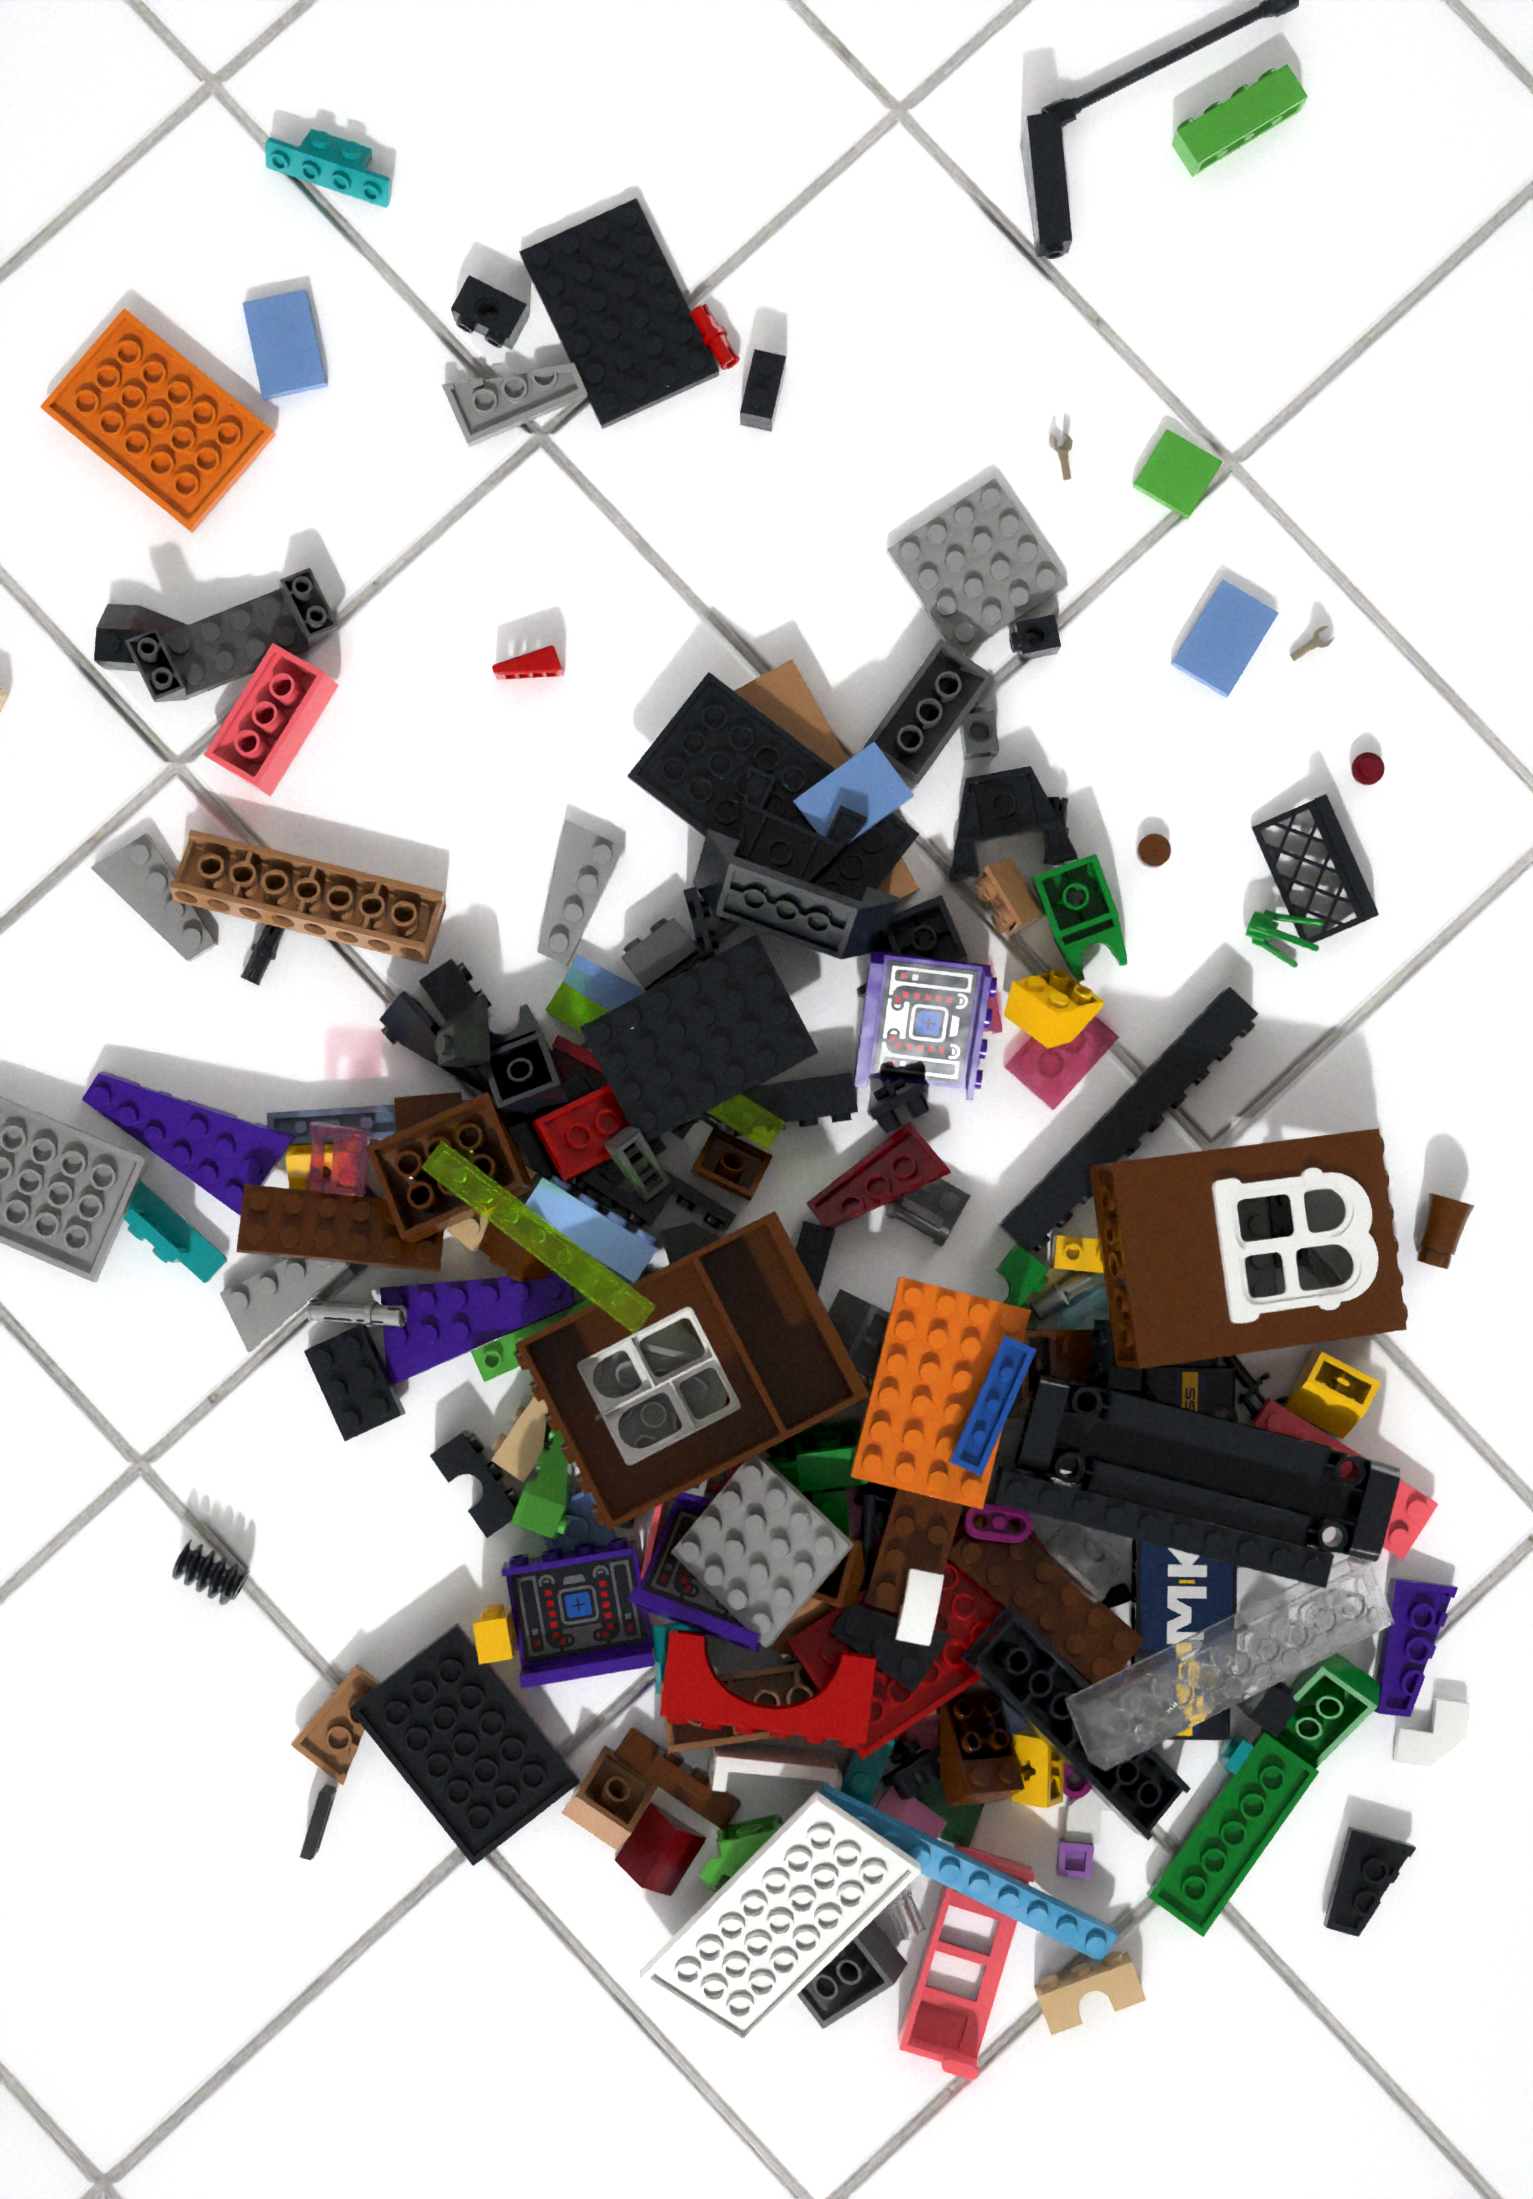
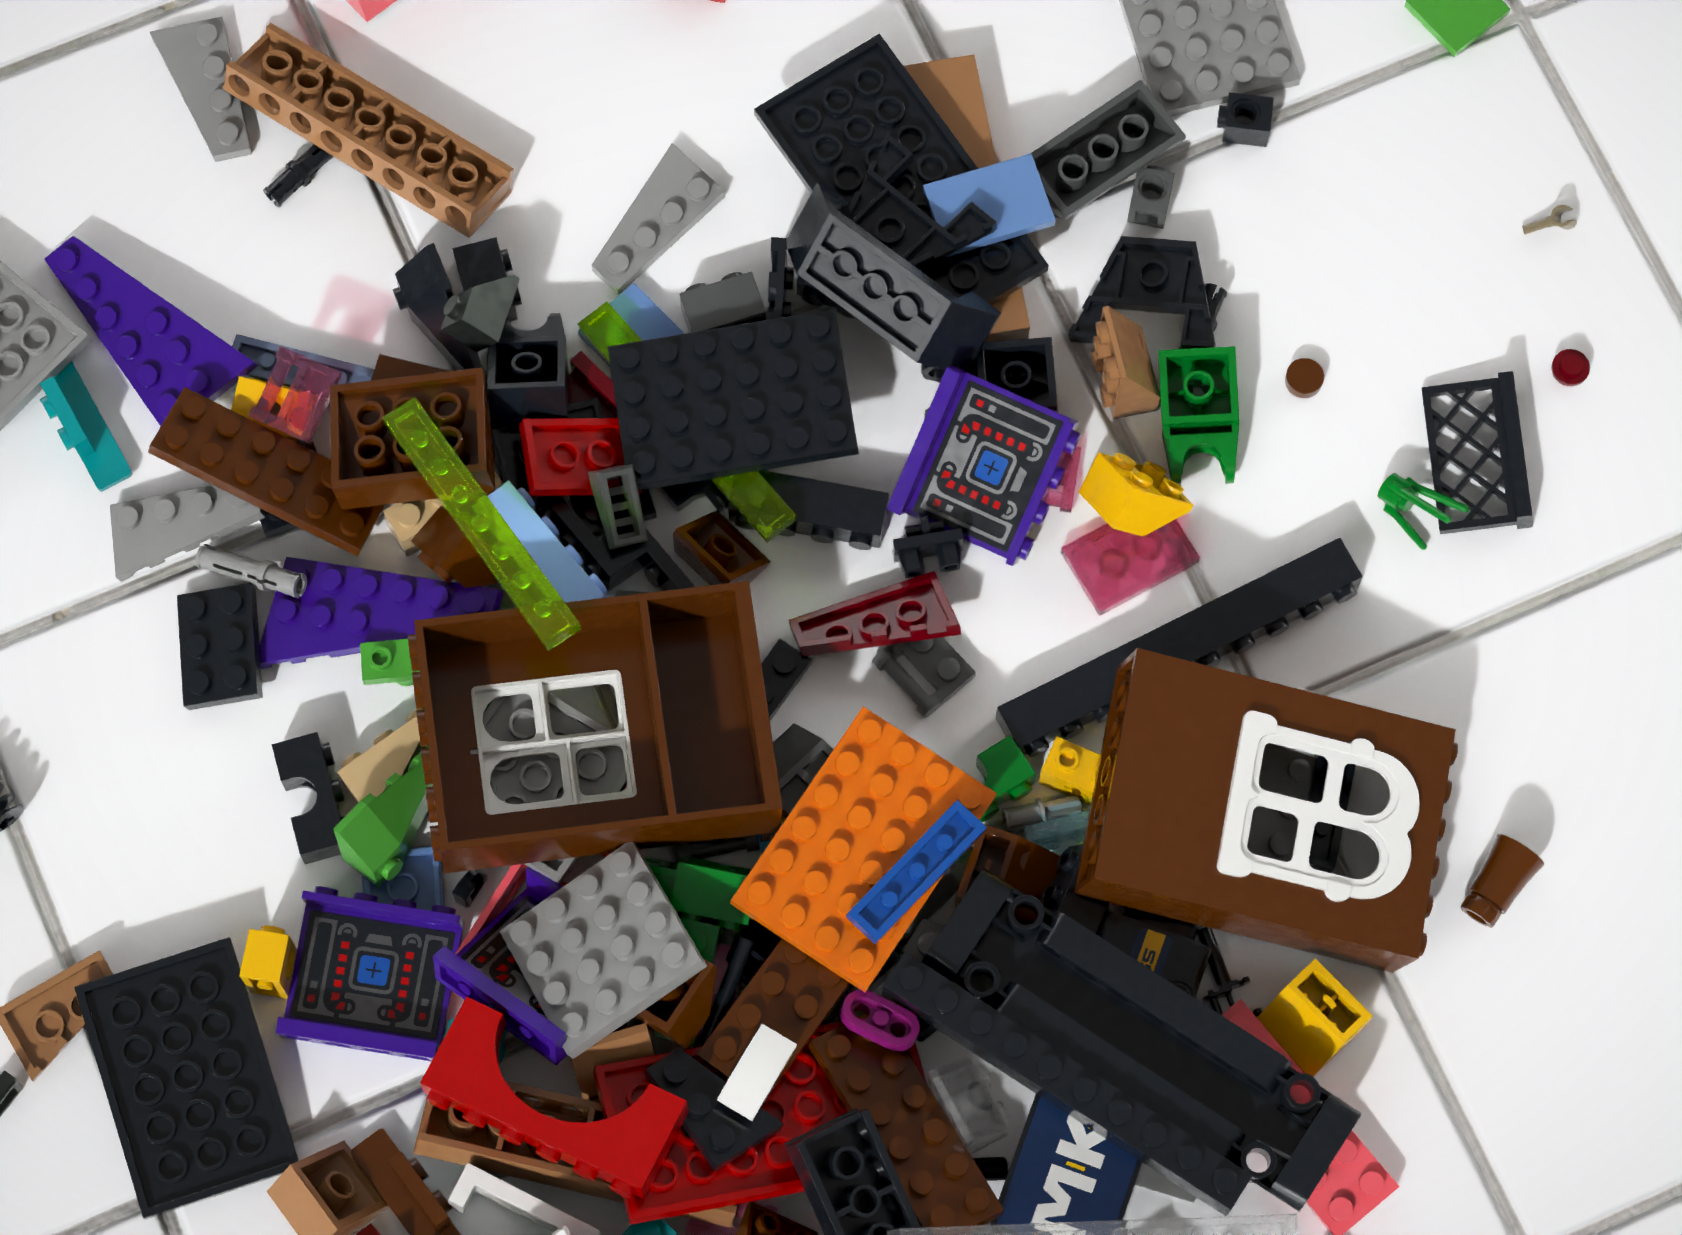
camera: 20 degrees right, 15 degrees down
(1224, 638) = (1454, 187): medium blue tile -> none

